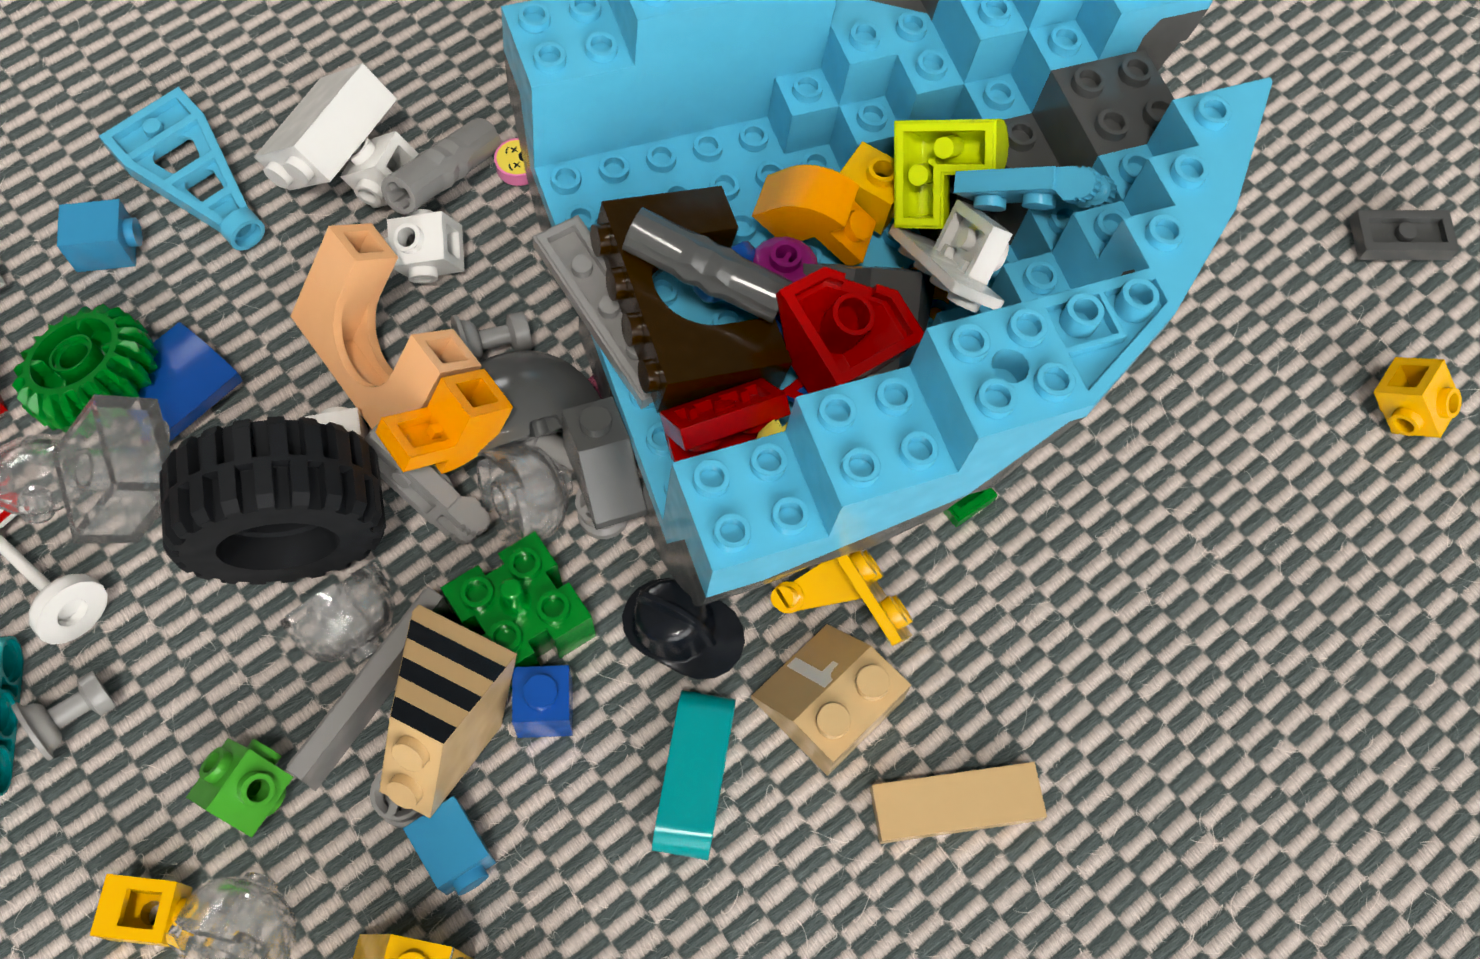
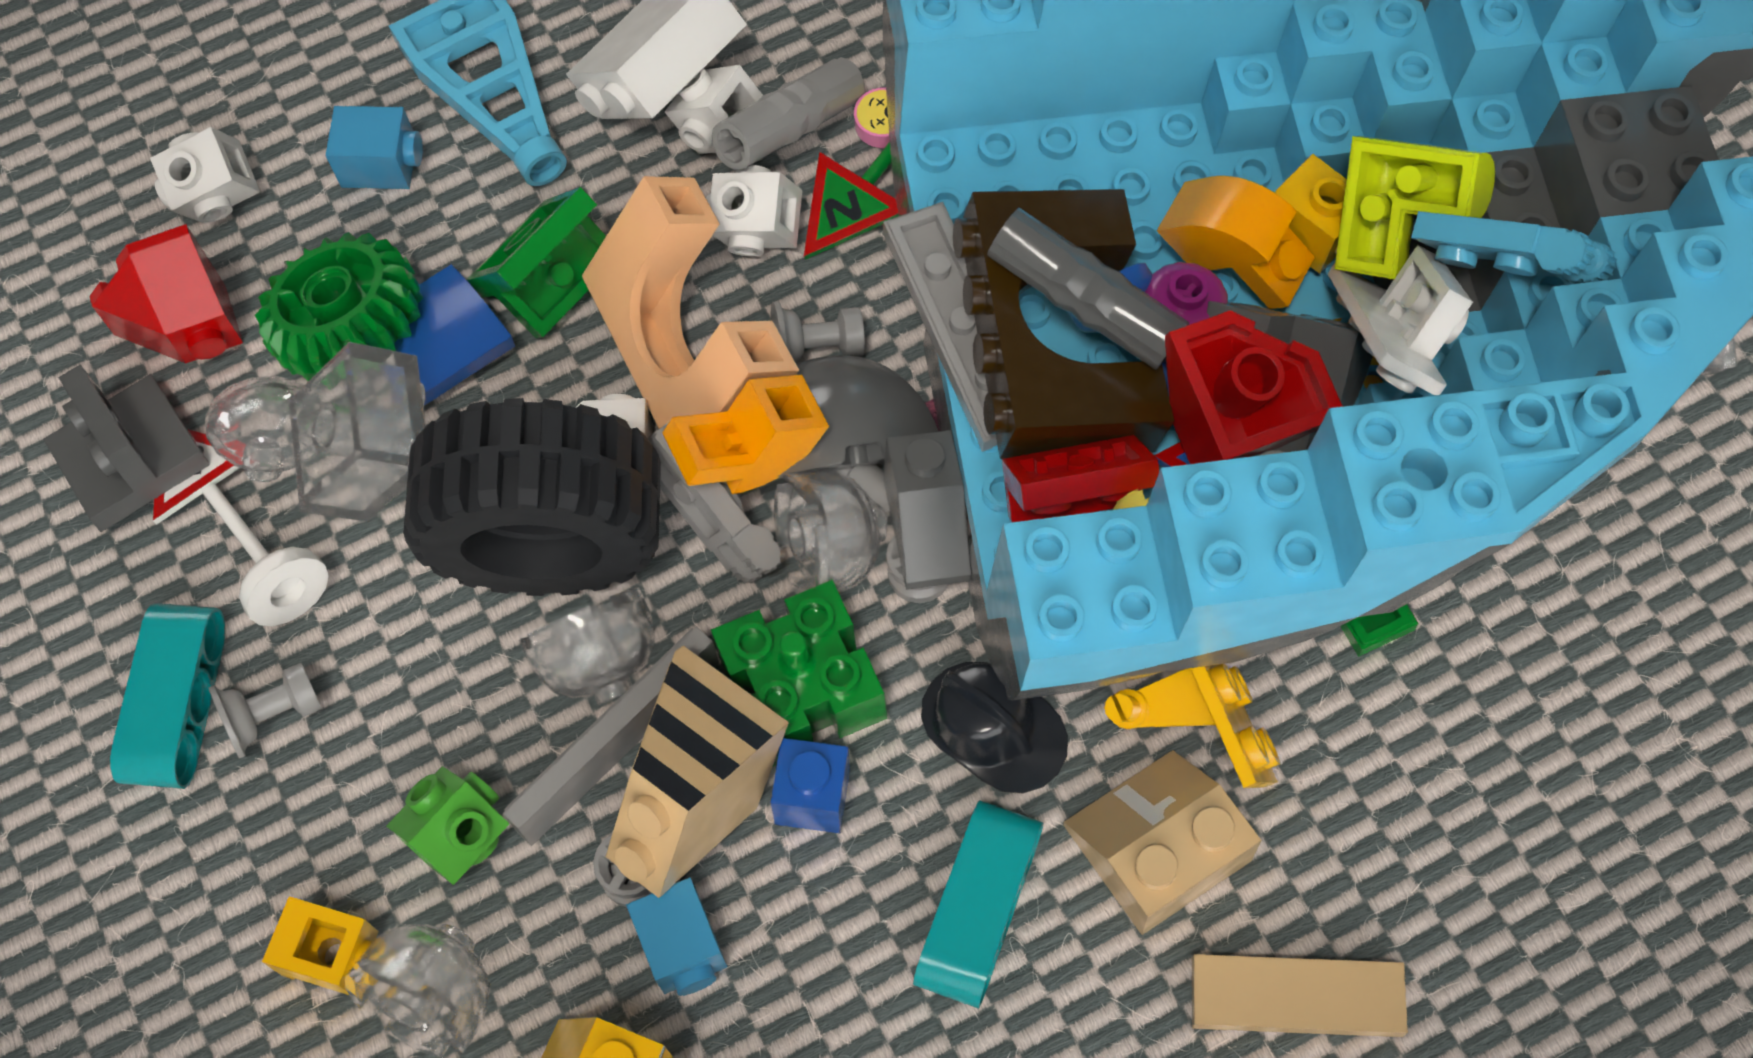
camera: 20 degrees right, 0 degrees up
(256, 310) = (543, 262): none -> green bracket
(499, 231) = (846, 203): none -> piece

